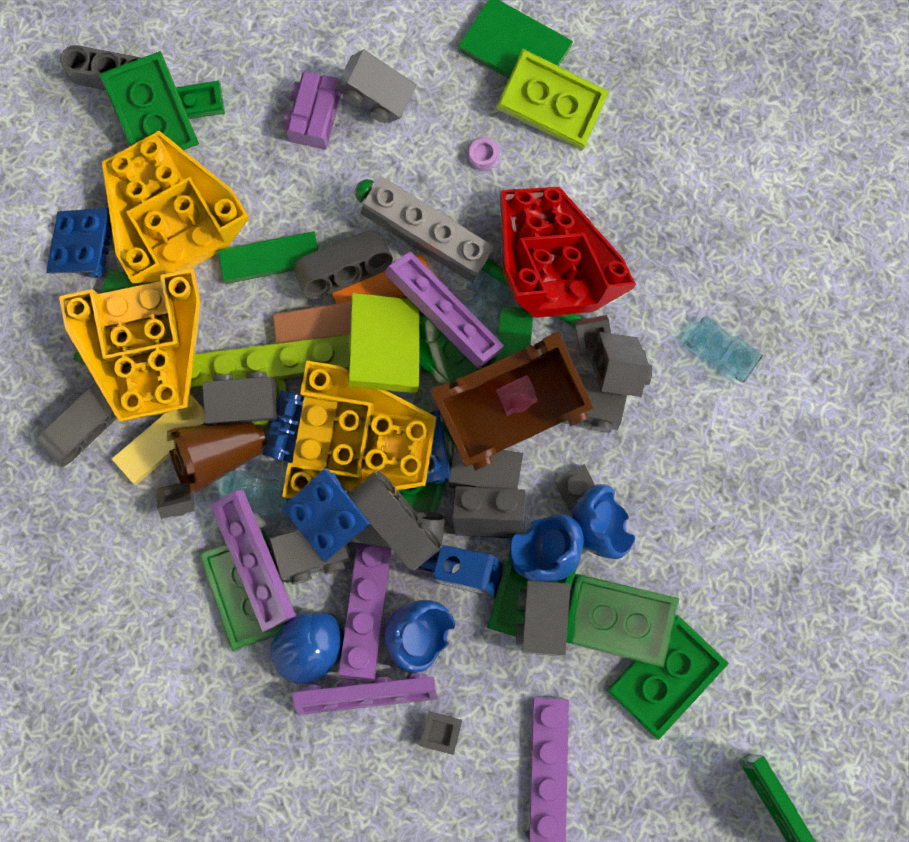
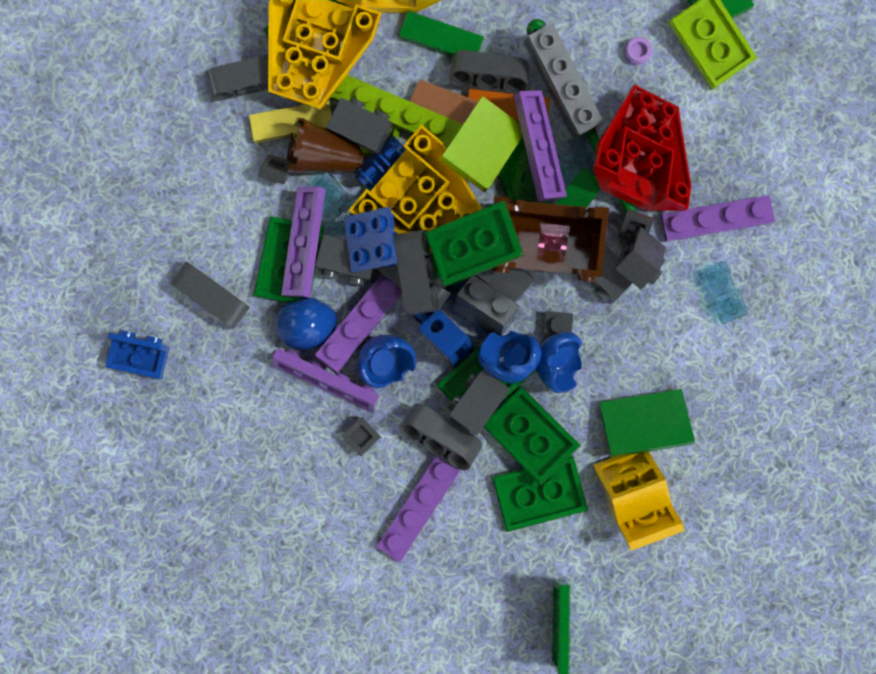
camera: 30 degrees right, 5 degrees up
(141, 795) = (136, 355): none -> blue bracket
(183, 679) = (209, 295): none -> dark grey beam
(439, 453) = (474, 243): none -> green tile
(526, 680) = (440, 436): none -> dark grey beam
(670, 277) = (717, 218): none -> medium lavender plate
(731, 533) = (646, 423): none -> green tile
(773, 617) = (638, 499): none -> yellow bracket

